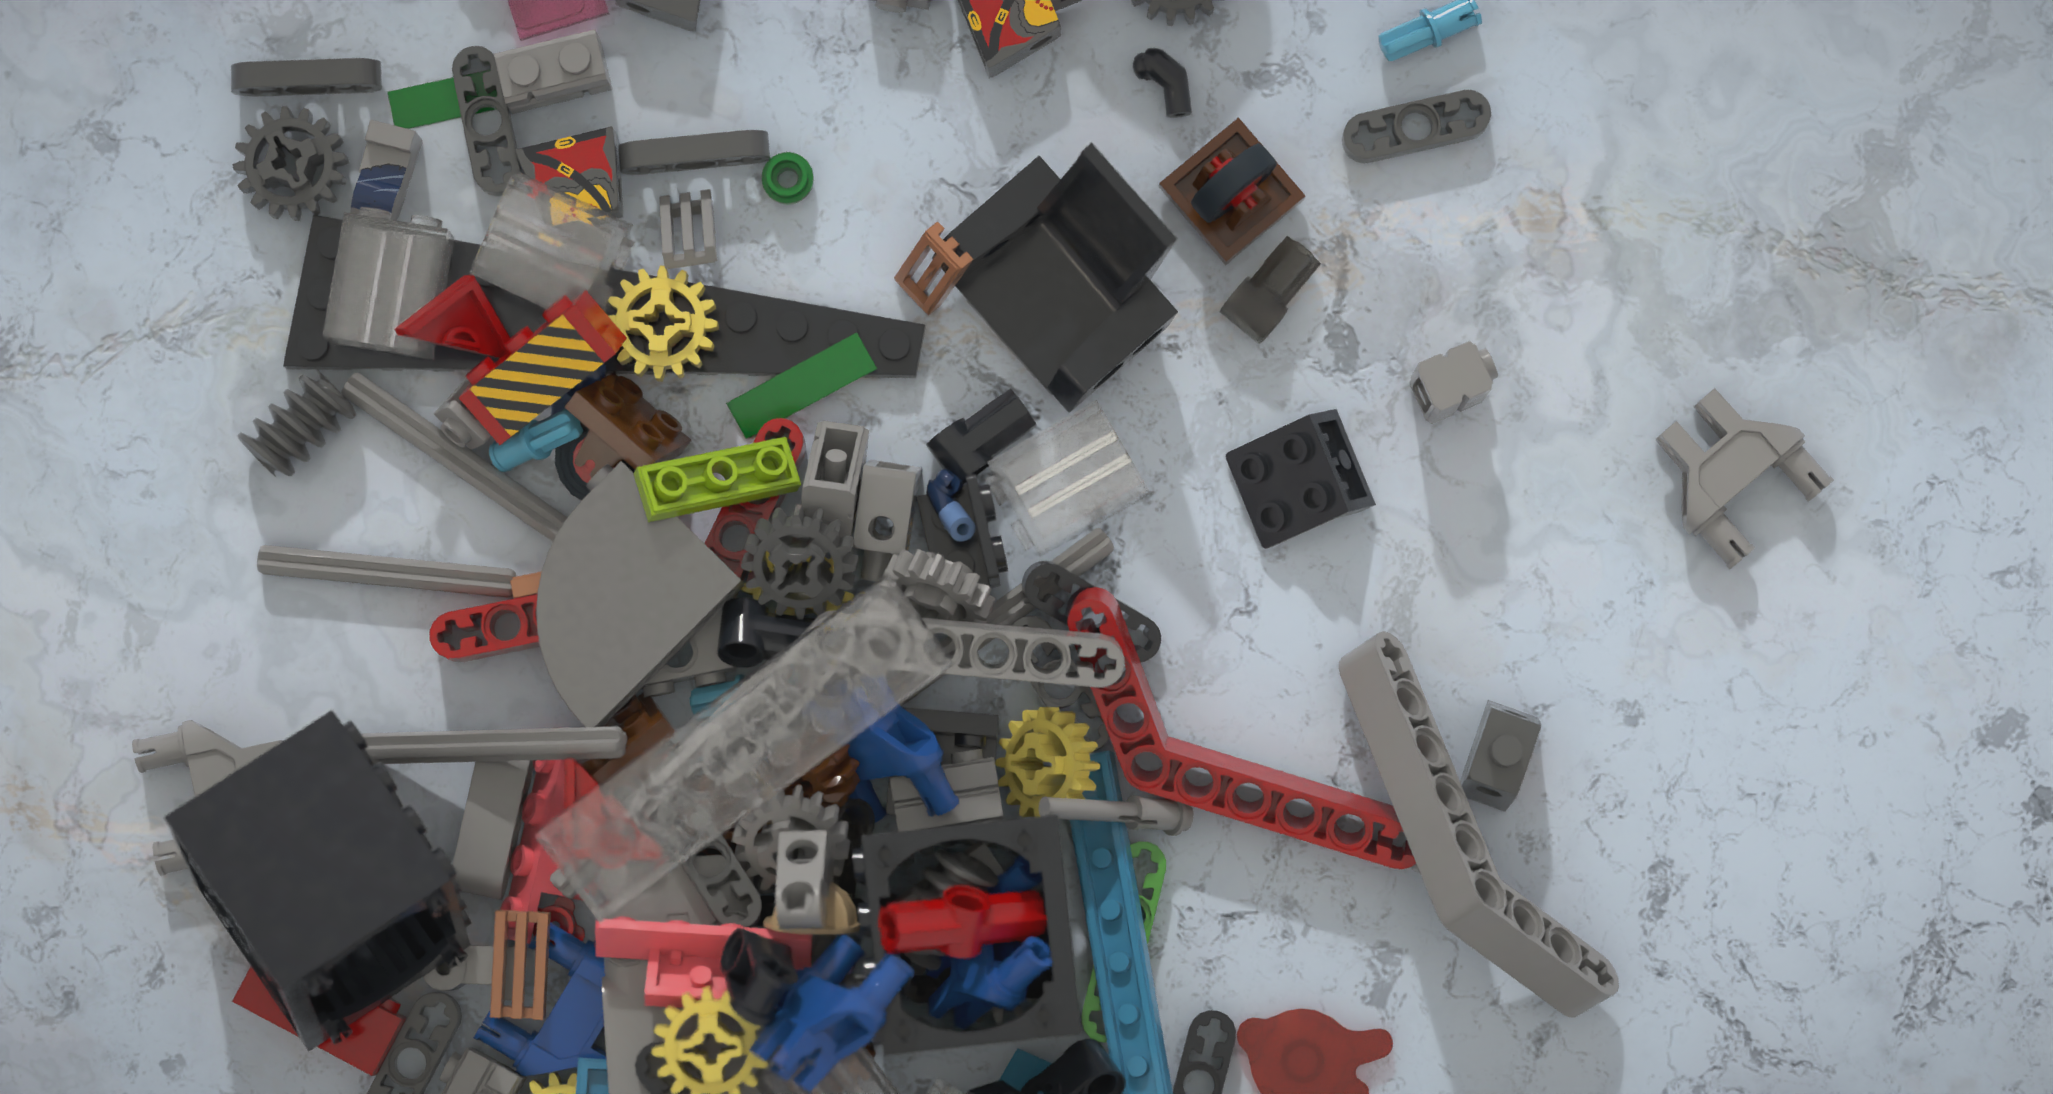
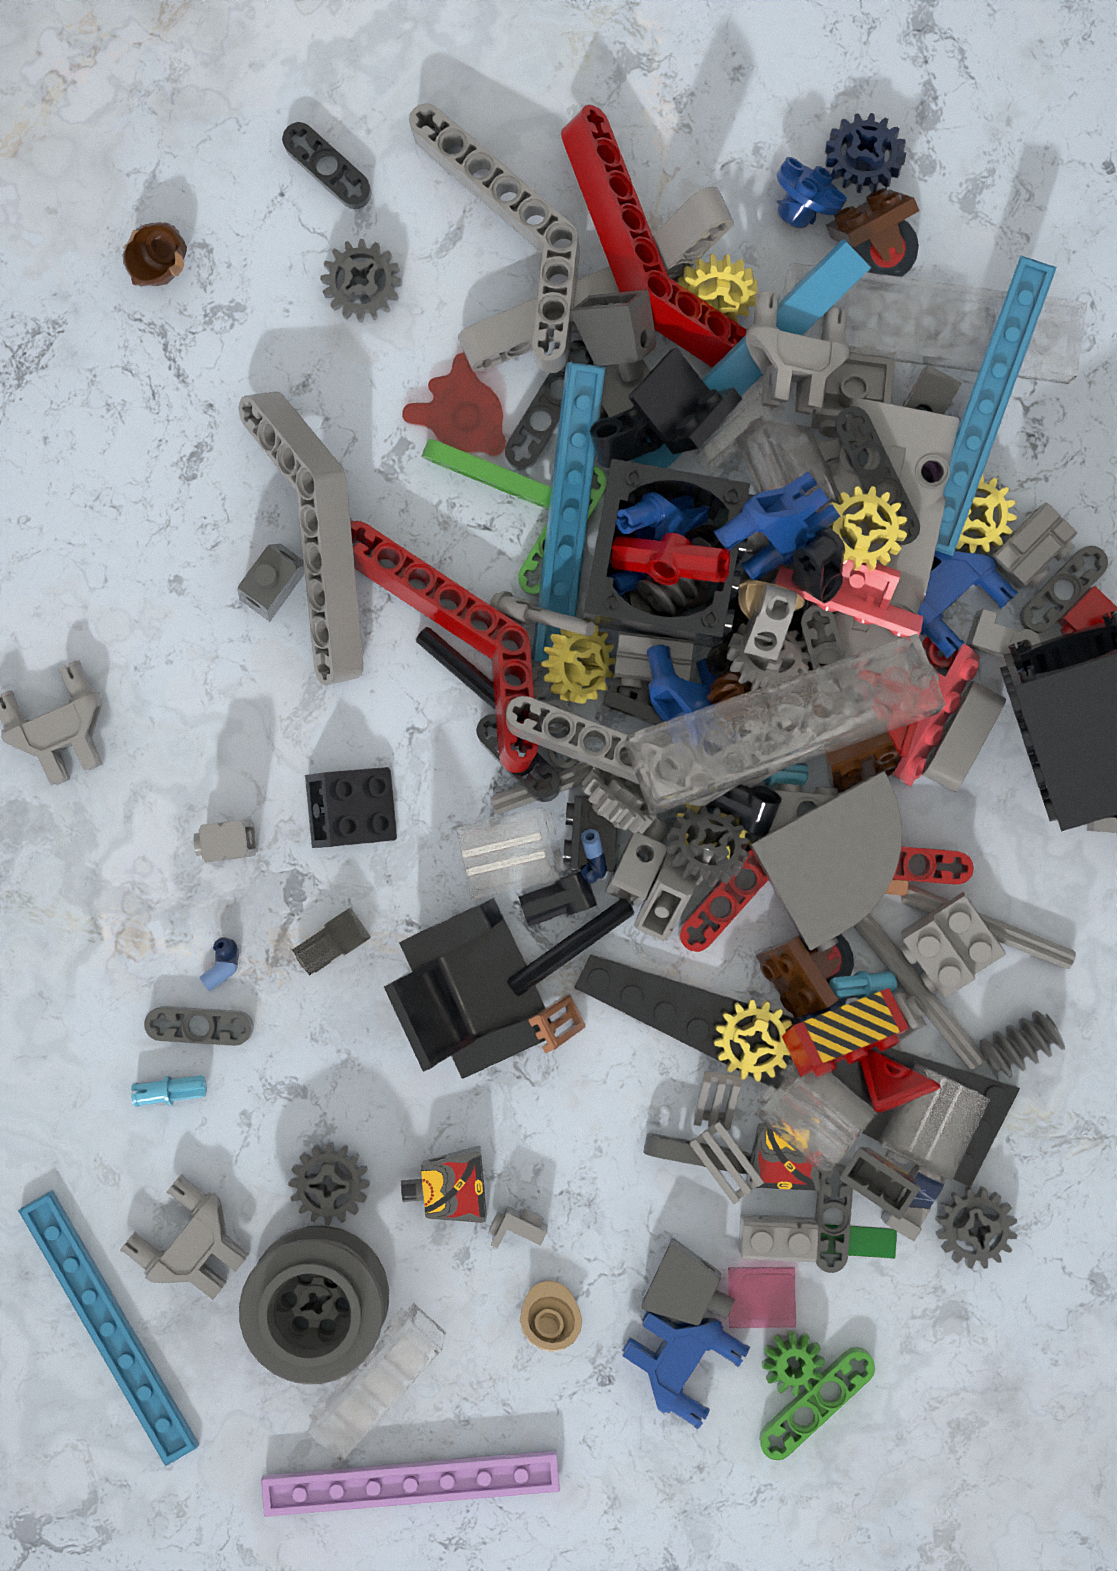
camera: 170 degrees left, 5 degrees up
(306, 77) = (949, 1284): dark grey beam -> none
(430, 529) = (951, 945): none -> light grey plate
(439, 184) = (880, 1181): none -> dark grey torso
(496, 745) = (954, 784): light grey axle -> none
(518, 1010) = (984, 600): nougat tile -> none
(617, 122) = (745, 1188): none -> light grey tile
(690, 487) = (768, 919): lime tile -> none
(787, 162) = (638, 1128): green plate -> none
(802, 385) = (669, 970): green sticker -> none
(945, 377) = (570, 947): none -> black axle
(1170, 75) = (356, 1110): black arm -> none
(1209, 713) = (458, 666): none -> black axle
(1232, 191) = (337, 1018): reddish brown plate -> none
(1250, 989) = (487, 473): none -> bright green beam
(1406, 221) = (225, 963): none -> arm

